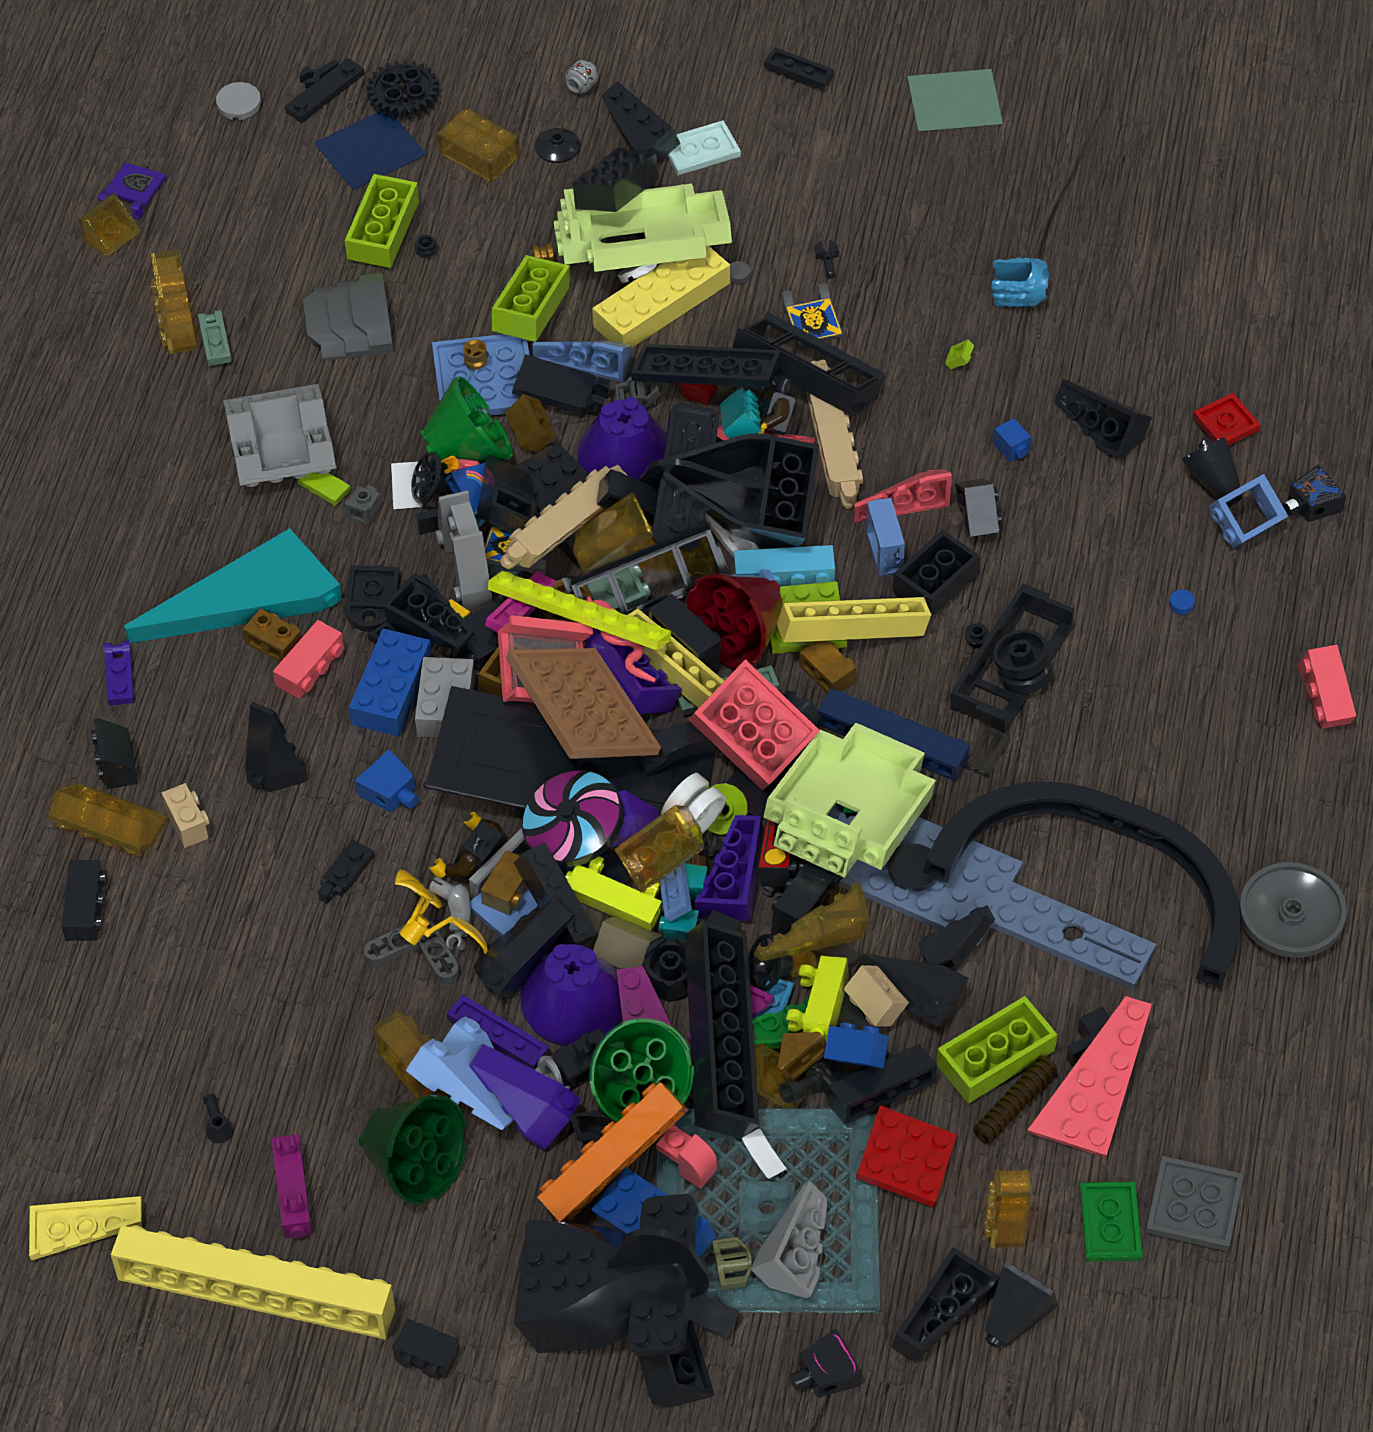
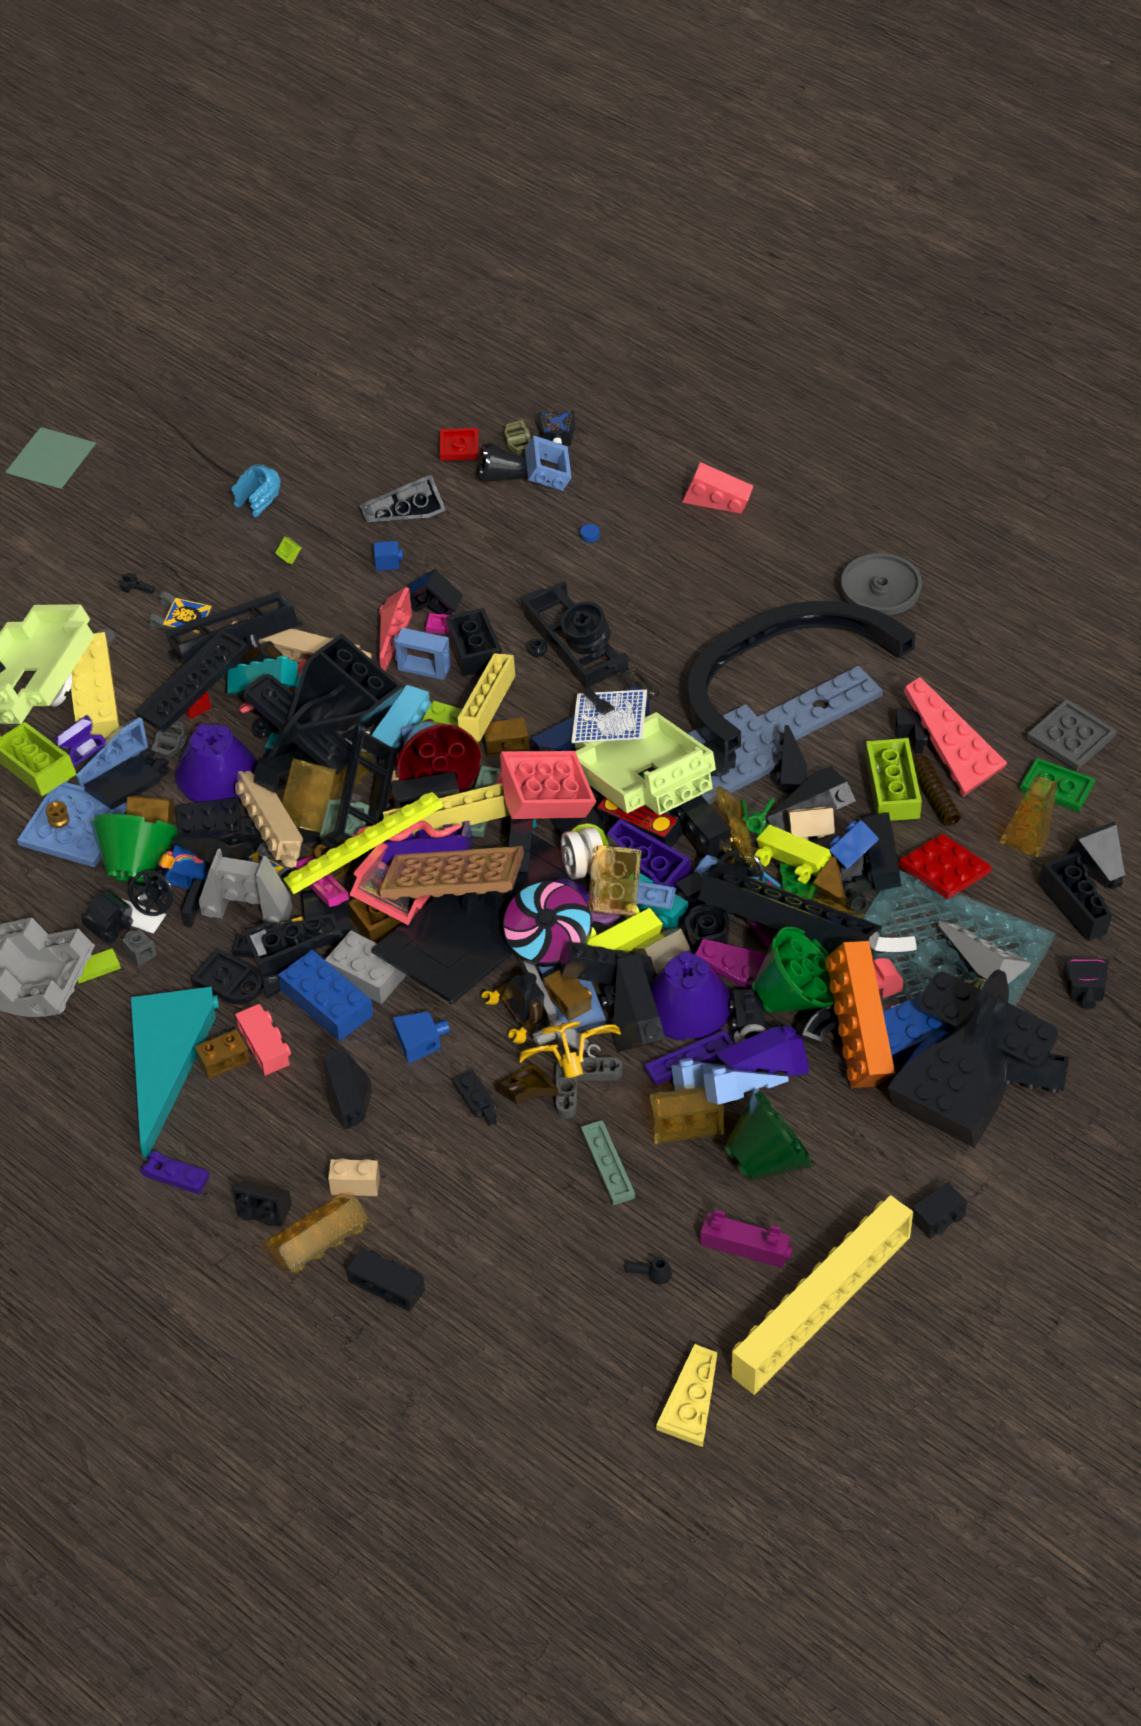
camera: 60 degrees left, 5 degrees down
(324, 1020) = (607, 1162): none -> sand green plate
(375, 904) = (526, 1085): none -> dark brown plate
(376, 460) = (108, 916): none -> black brick
(571, 319) = (80, 740): none -> dark purple piece
(756, 927) = (706, 865): none -> medium blue plate
(830, 939) = (756, 820): none -> green plant
(903, 741) = (620, 724): none -> white sticker
(913, 727) = (601, 705): none -> black piece
(954, 528) = (436, 623): none -> dark pink tile
(1276, 467) = (517, 437): none -> olive piece

